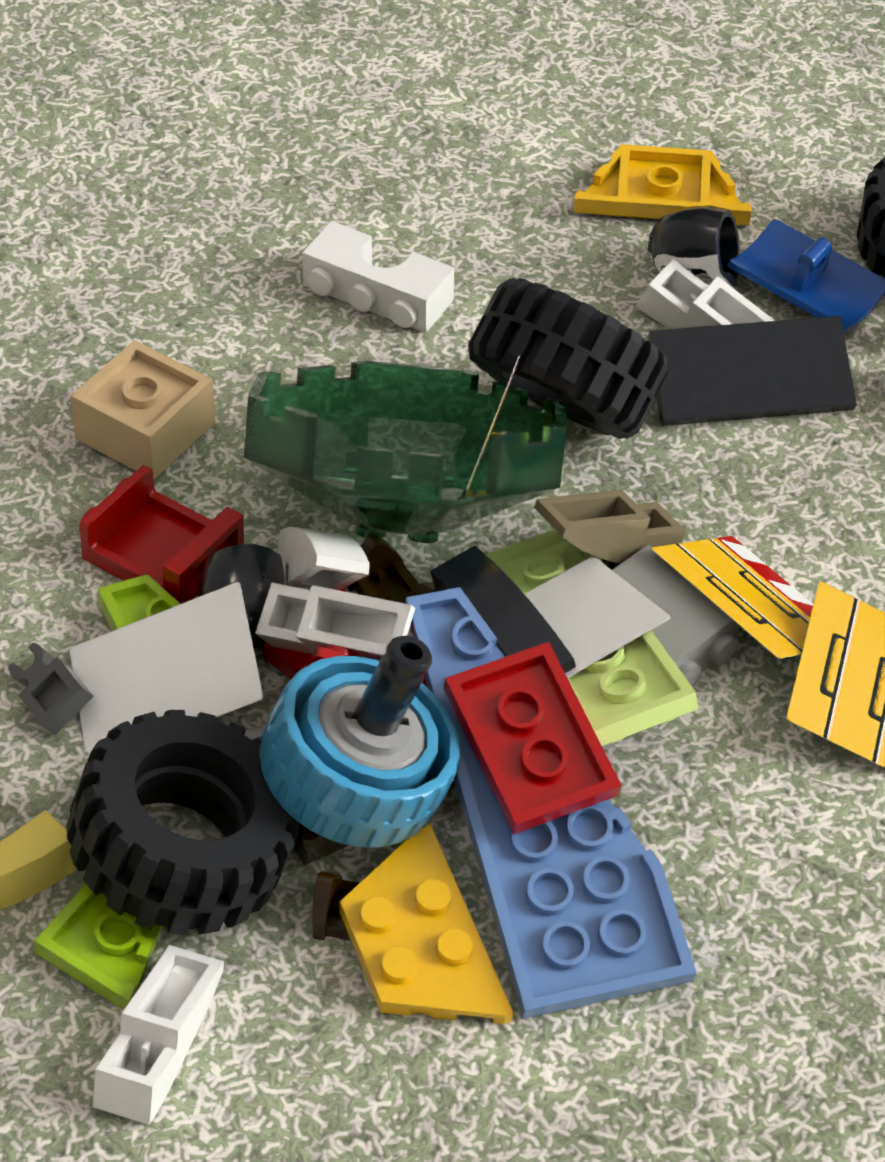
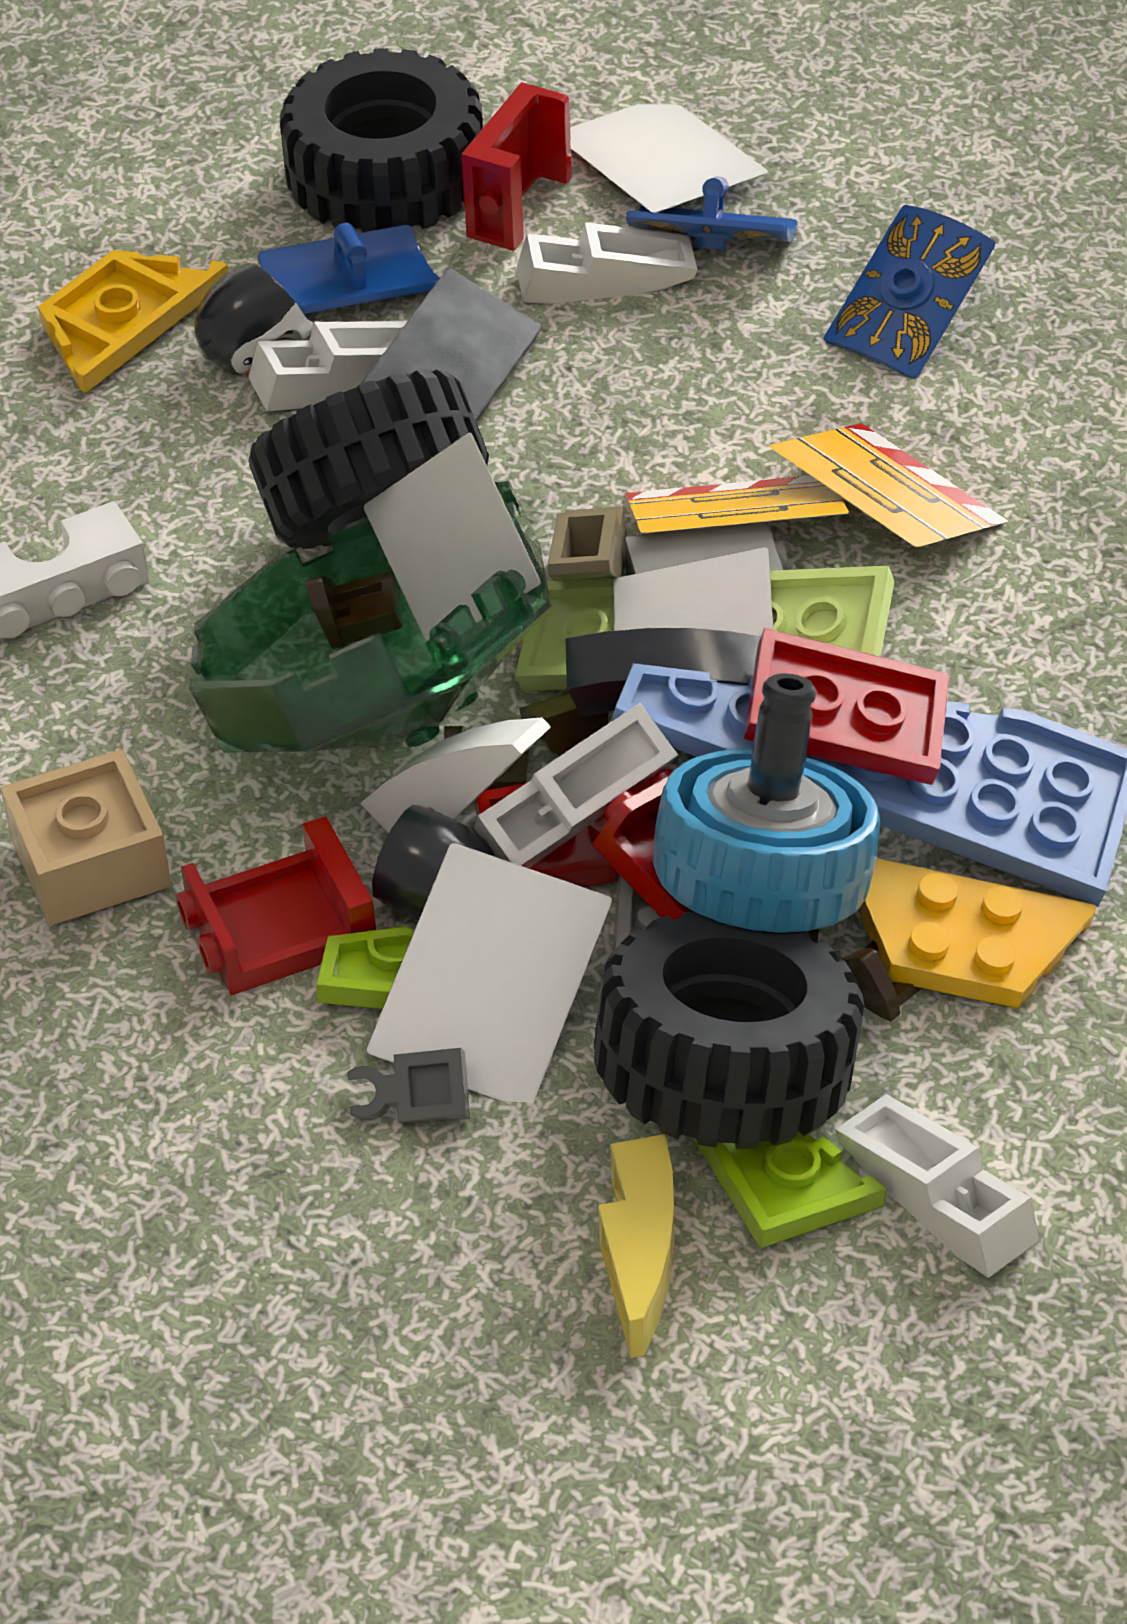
camera: 55 degrees left, 0 degrees up
(455, 432) = (356, 607): none -> dark brown tile

